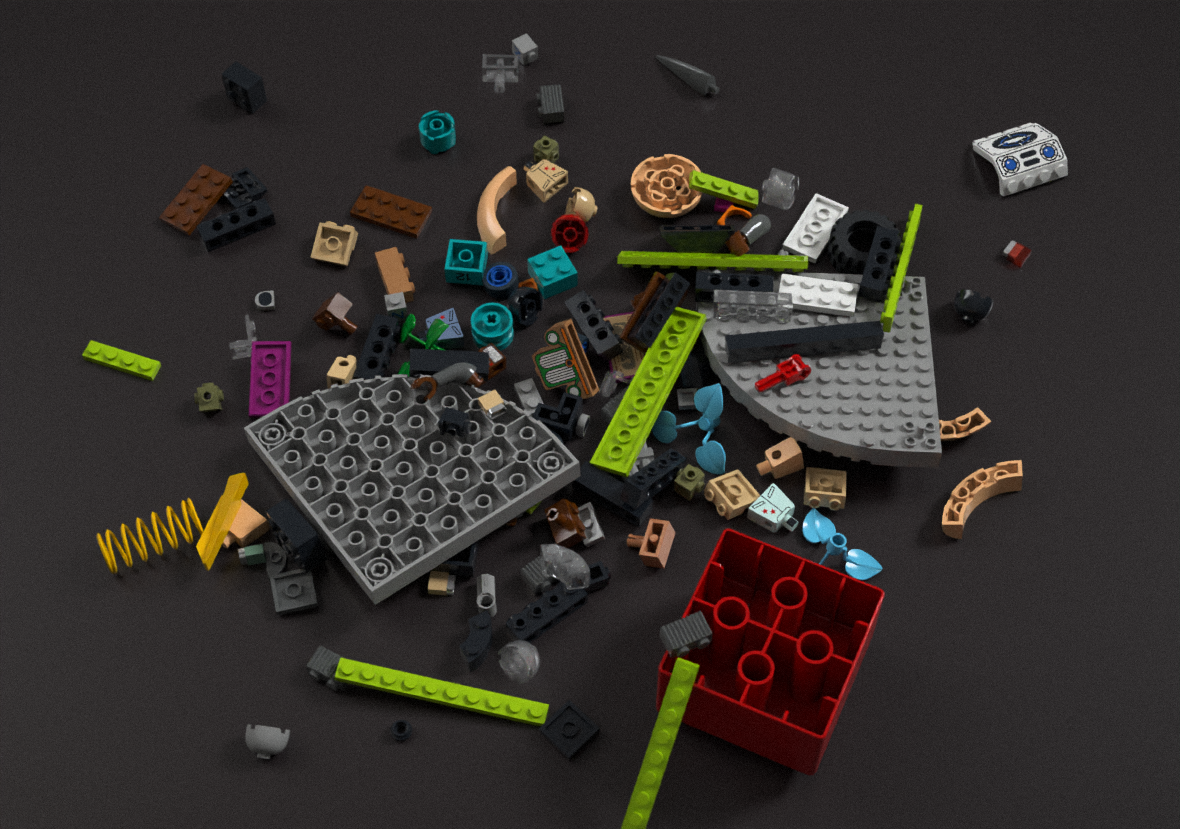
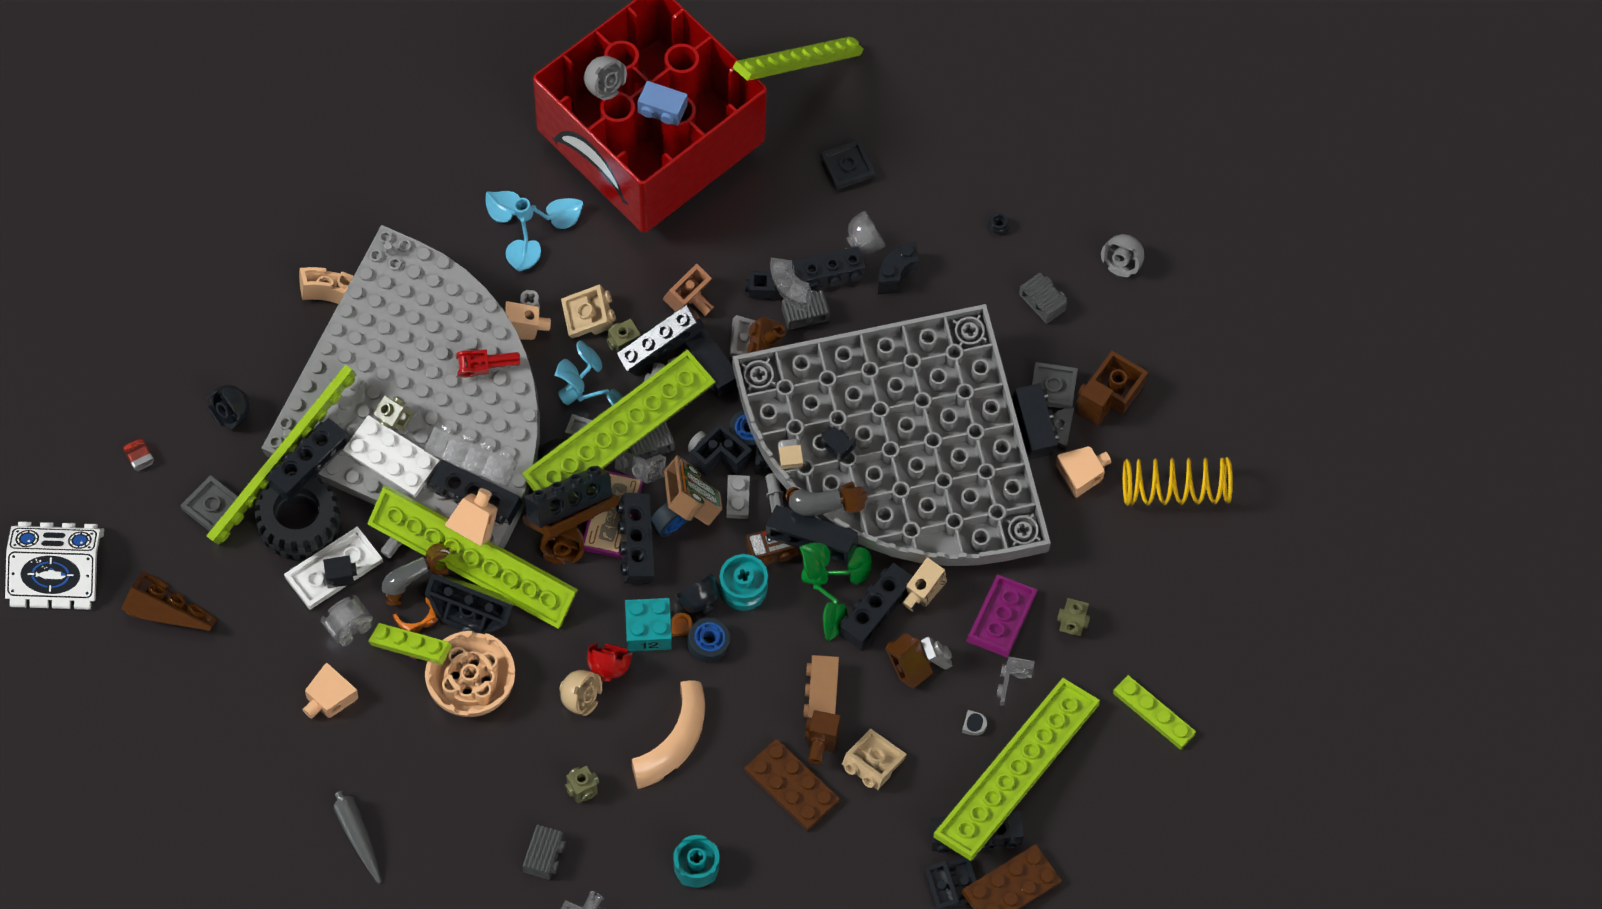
camera: 160 degrees left, 5 degrees up
(216, 270) = (1016, 769): none -> lime plate
(221, 519) = (1102, 464): yellow wedge -> none
(234, 609) = (1123, 378): none -> reddish brown brick
(248, 579) = (1094, 401): none -> reddish brown brick
(252, 554) = (1082, 434): sand green piece -> none
(312, 327) = (937, 653): none -> light grey plate
(379, 236) = (822, 734): none -> reddish brown brick
(396, 306) = (837, 646): light grey brick -> none
(441, 692) = (951, 234): lime plate -> none
(451, 337) = (797, 602): sand blue torso -> none
(466, 261) = (737, 670): teal brick -> none
(486, 594) = (871, 309): light grey piece -> none
(545, 178) = (599, 750): tan torso -> none
(686, 635) = (730, 97): dark grey brick -> none
(723, 261) = (474, 517): none -> light nougat torso
(747, 602) = (662, 103): none -> medium blue brick
(763, 146) = (329, 693): none -> light nougat torso
(773, 510) = (557, 281): light aqua torso -> none
(783, 479) = (530, 297): none -> light grey bush
(804, 341) = (442, 392): black tile -> none
(807, 215) = (339, 571): none -> black brick
(816, 602) = (605, 76): none -> light grey cylinder
(825, 488) = (499, 279): tan plate -> none
(833, 312) = (393, 413): none -> olive brick
(922, 159) = (154, 602): none -> reddish brown wedge
(936, 237) = (208, 502): none -> dark grey plate
(977, 488) = (357, 222): light nougat brick -> none

